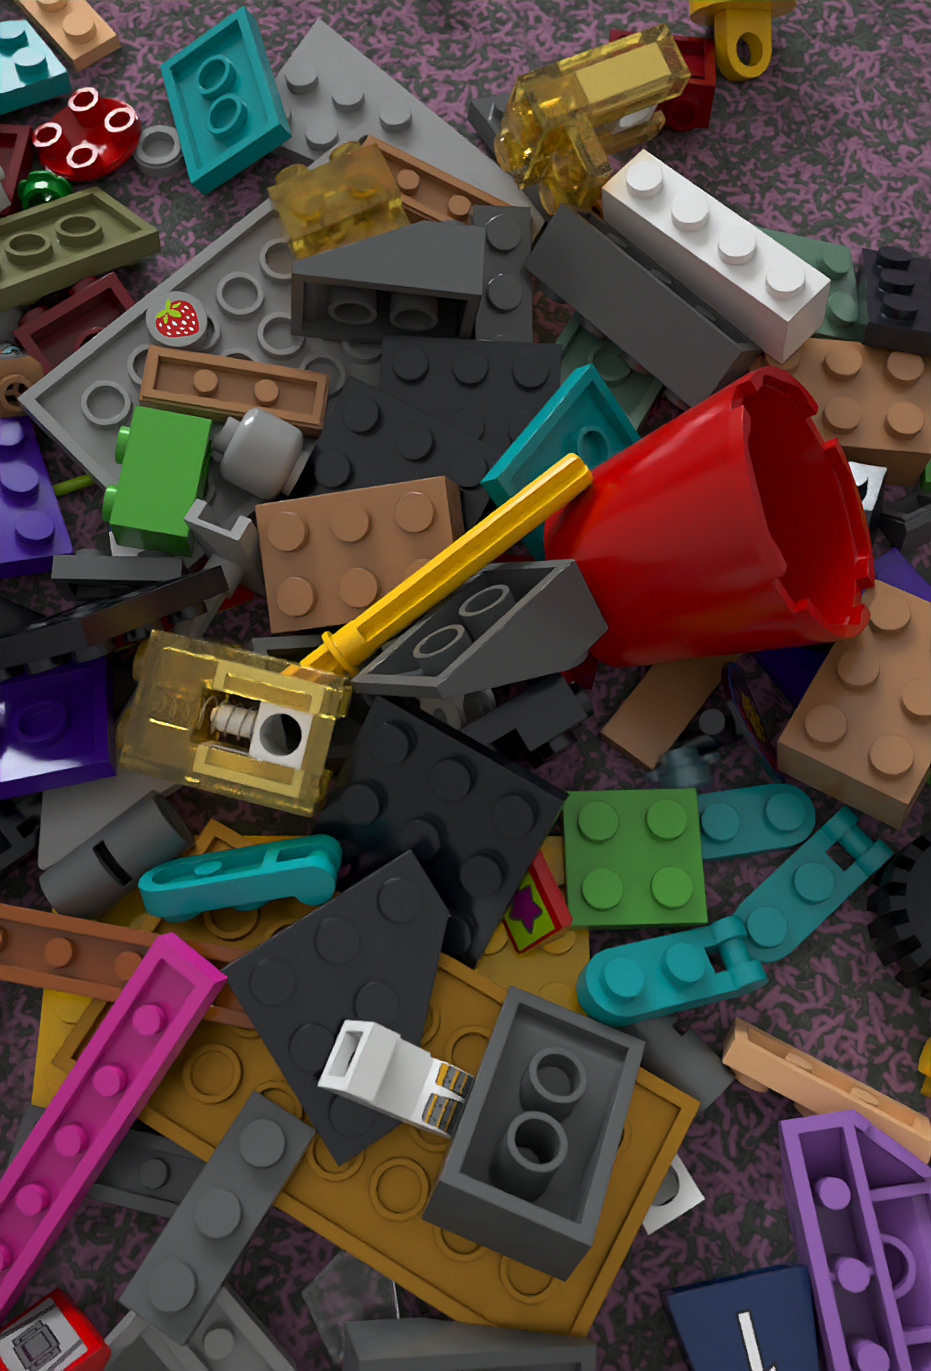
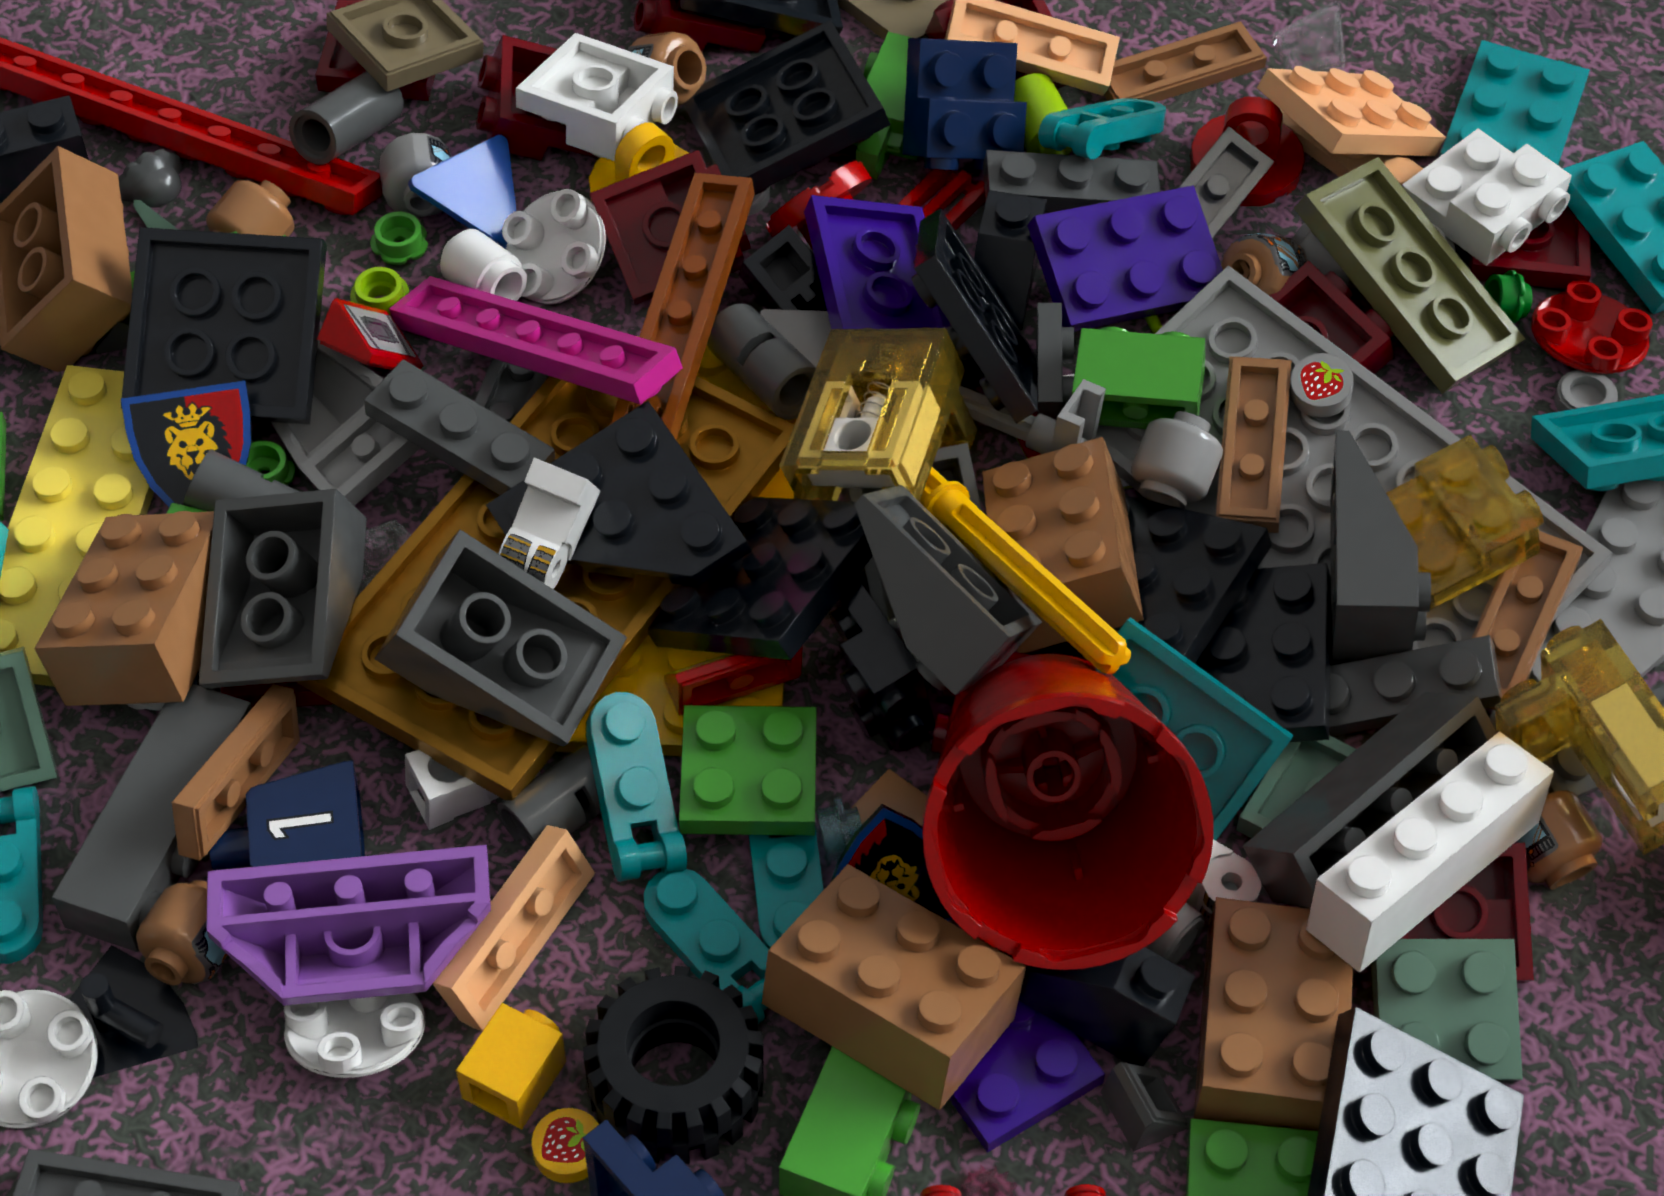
camera: 90 degrees right, 15 degrees down
(243, 877) = (736, 436): teal plate -> none

